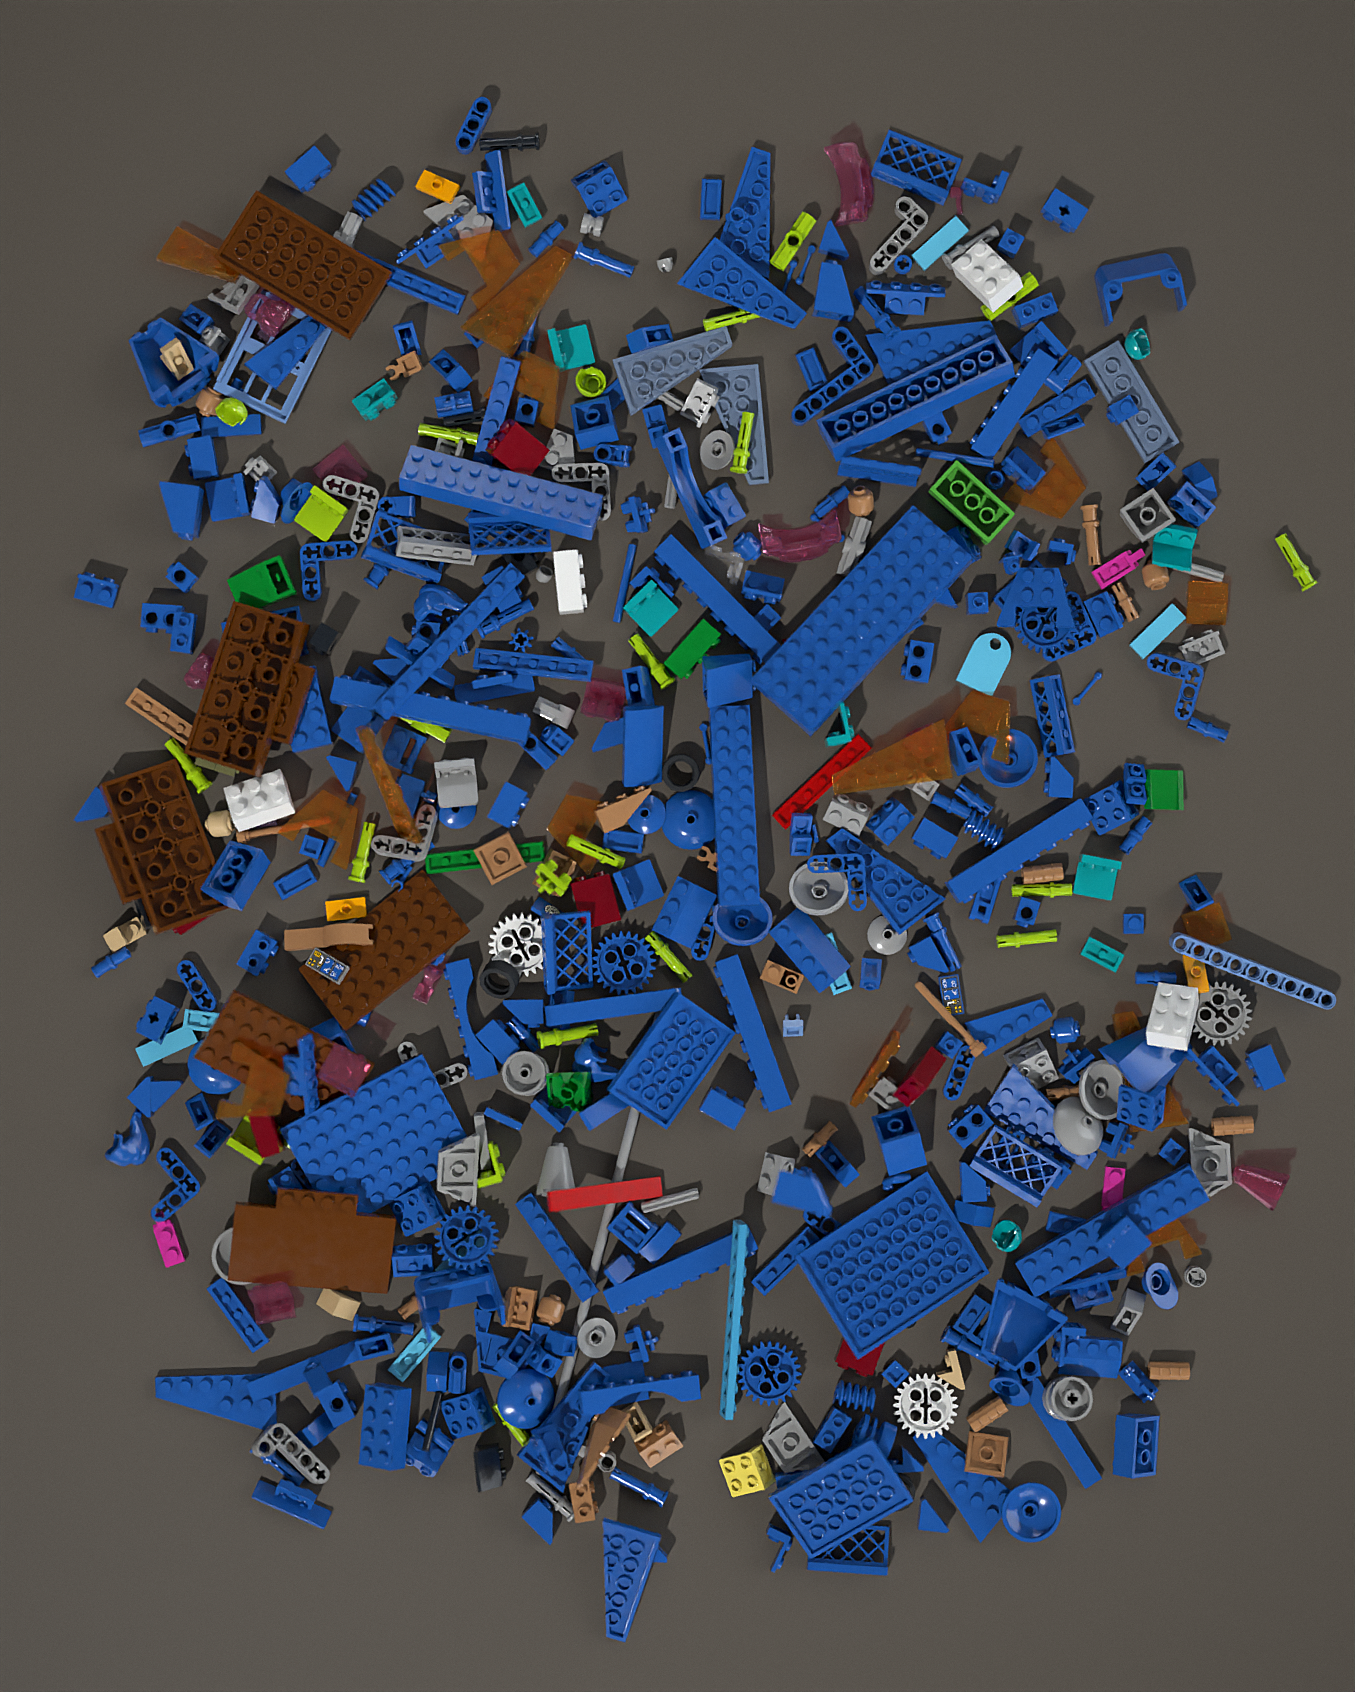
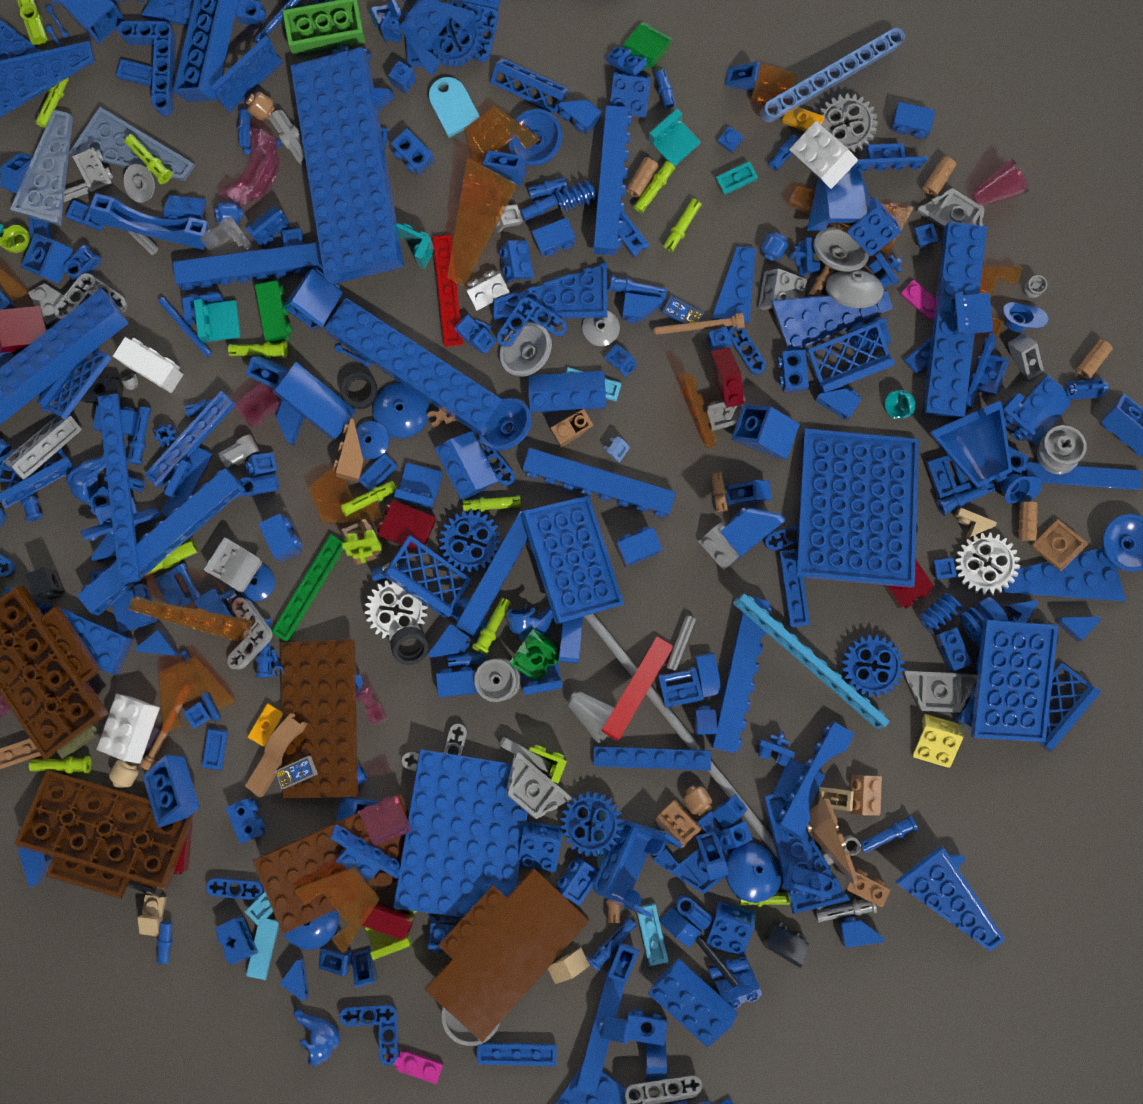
camera: 55 degrees left, 5 degrees down
(142, 1096) = (286, 1000): blue slope -> none
(272, 1302) = (527, 1018): clear pink bracket -> none
(360, 862) = (238, 686): lime pin -> none
(481, 1059) = (386, 675): blue arch -> none
(500, 858) = (317, 575): medium nougat tile -> none
(503, 1118) = (520, 724): blue tile -> none
(604, 1337) = (752, 775): light grey dish -> none
(640, 513) = (132, 276): blue hips -> none
(777, 1534) = (1005, 755): blue bracket -> none
(895, 1179) = (793, 456): blue arm -> none
(973, 1213) = (863, 418): blue slope -> none
(1004, 1152) = (836, 350): blue tile -> none
(1032, 905) = (661, 202): blue brick -> none
(1076, 701) = (532, 61): blue hinge -> none

